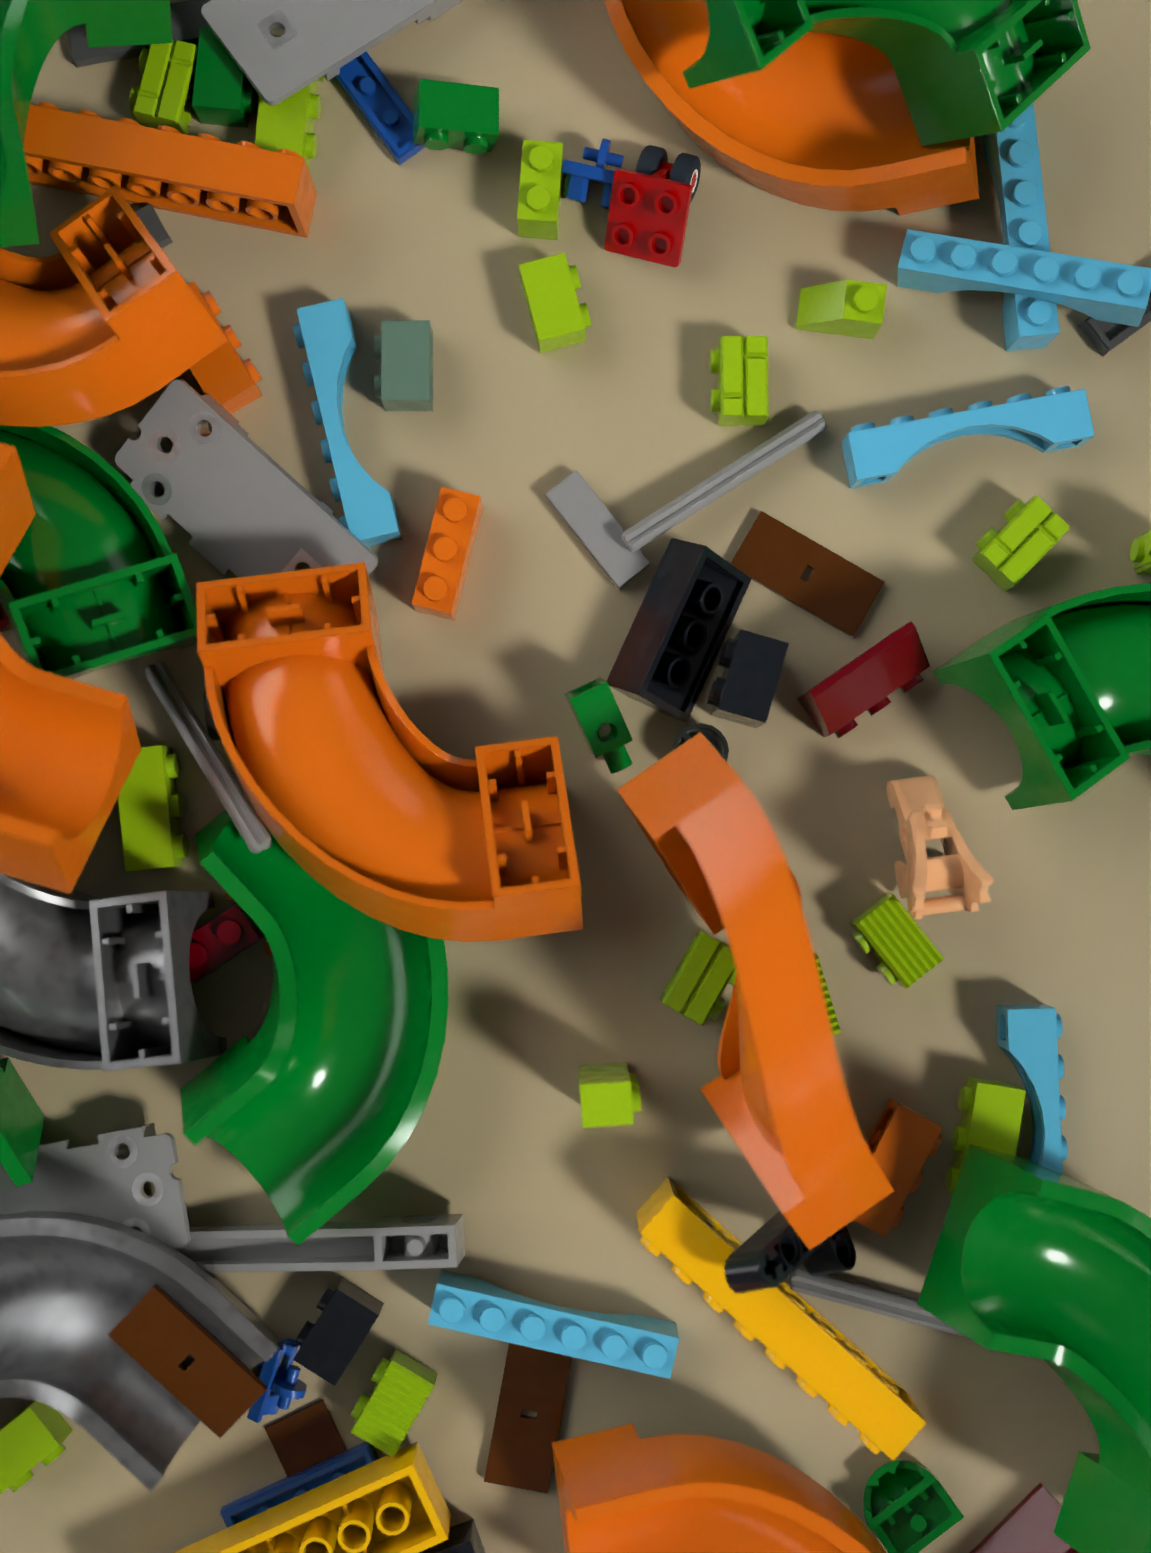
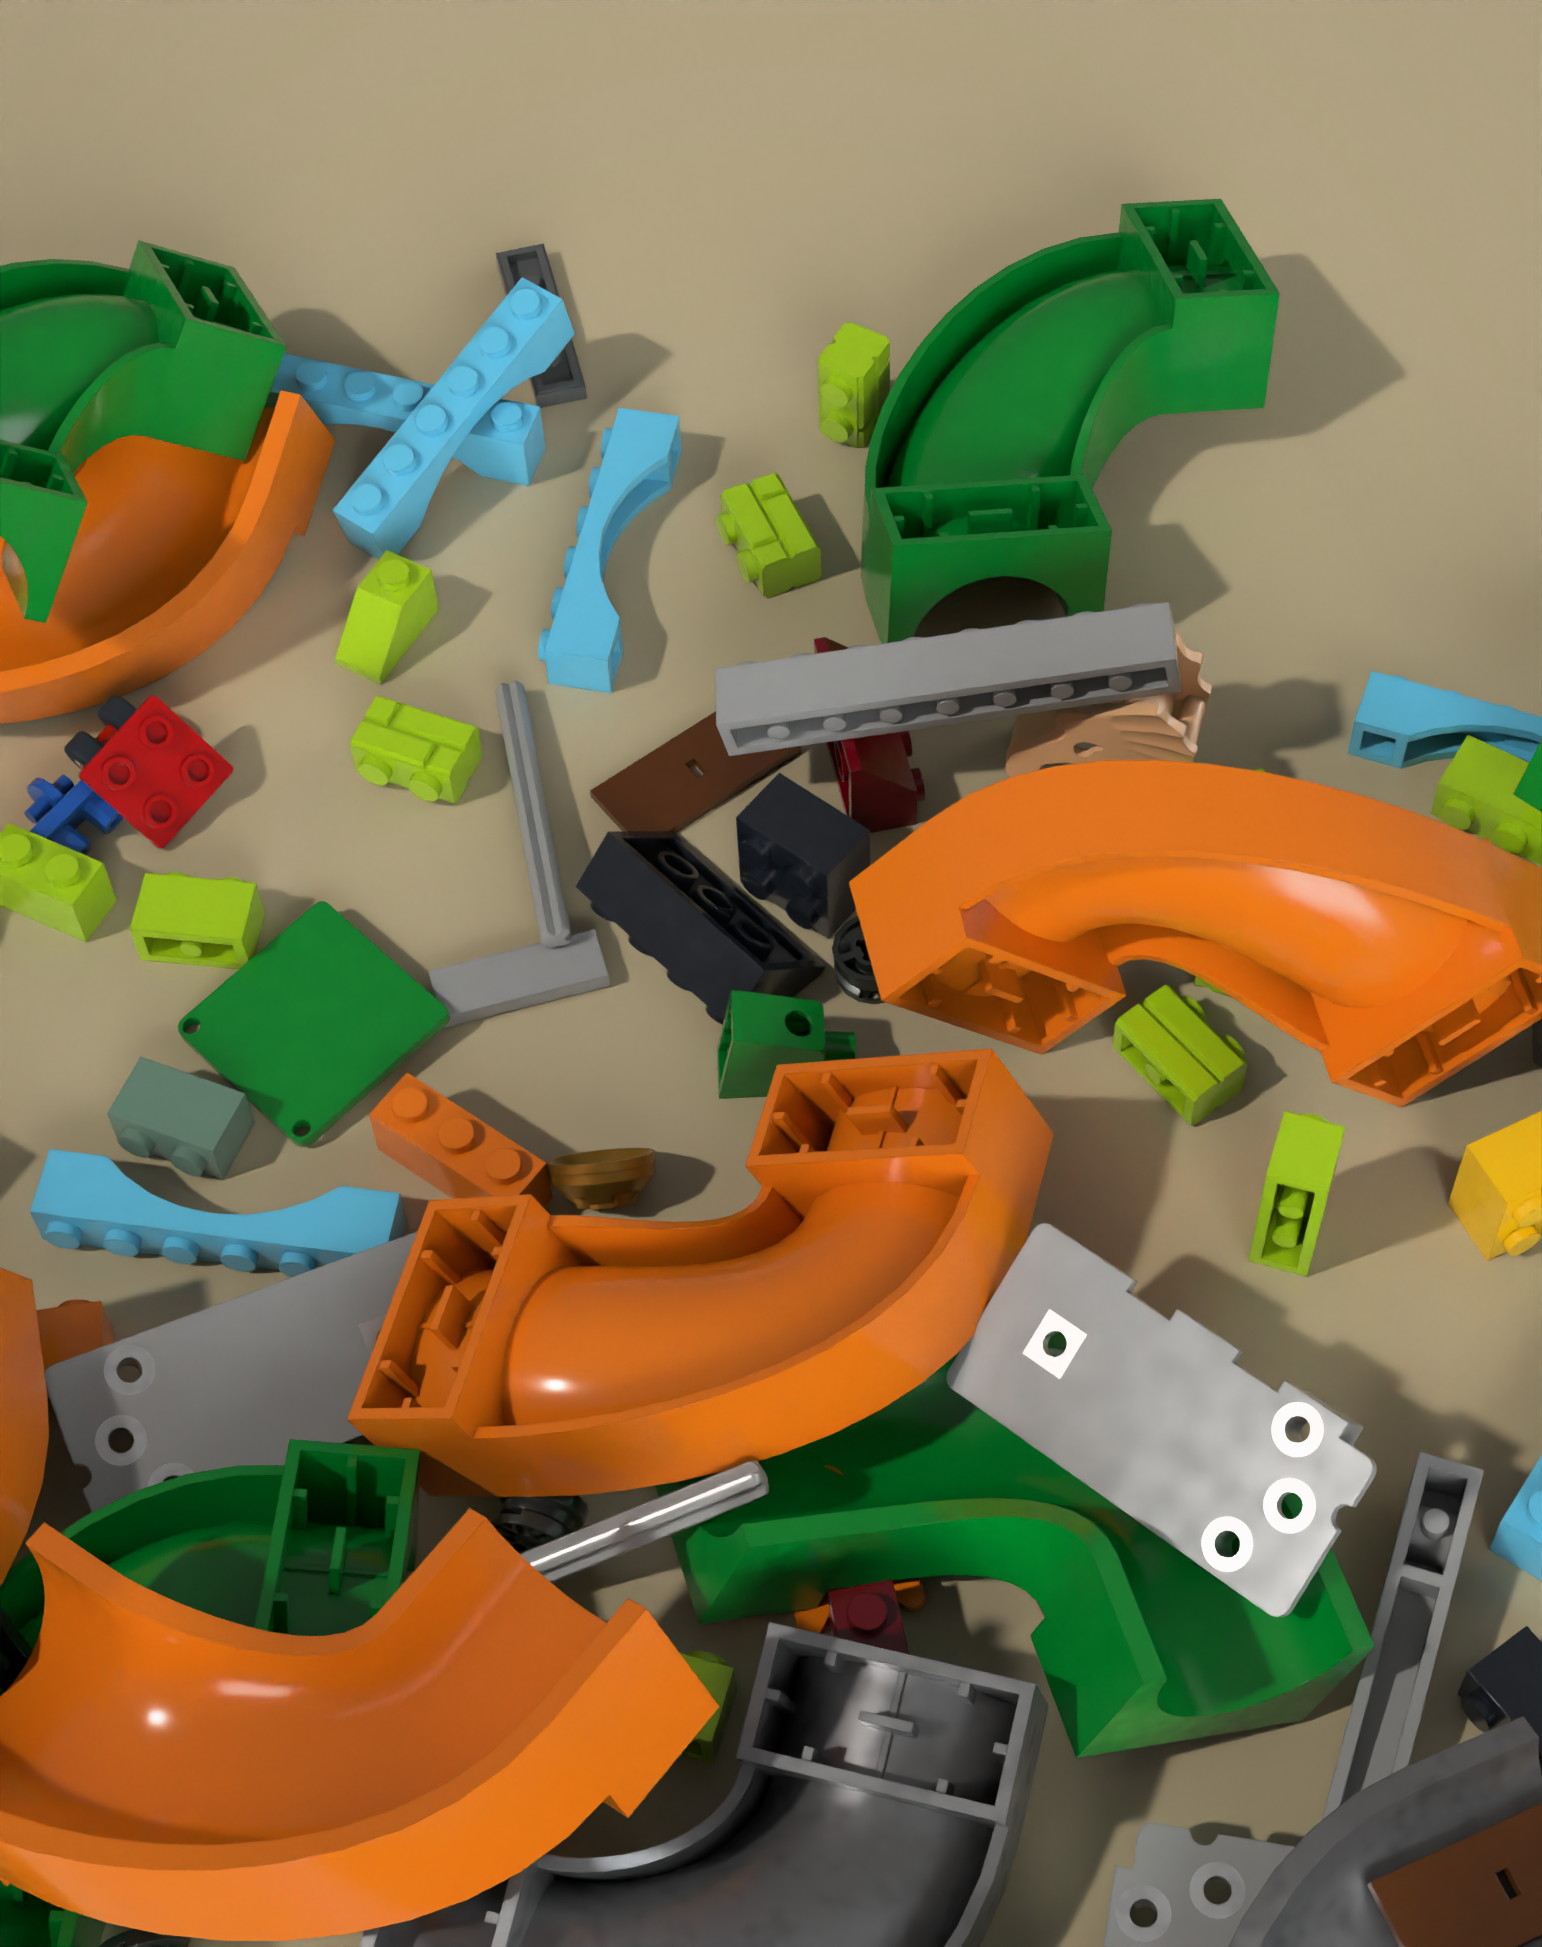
camera: 60 degrees left, 30 degrees down
(388, 1076) = (1163, 1420): none -> light grey piece
(475, 644) = (602, 1176): none -> pearl gold piece
(511, 413) = (313, 1023): none -> green piece
(895, 735) = (948, 679): none -> light grey brick

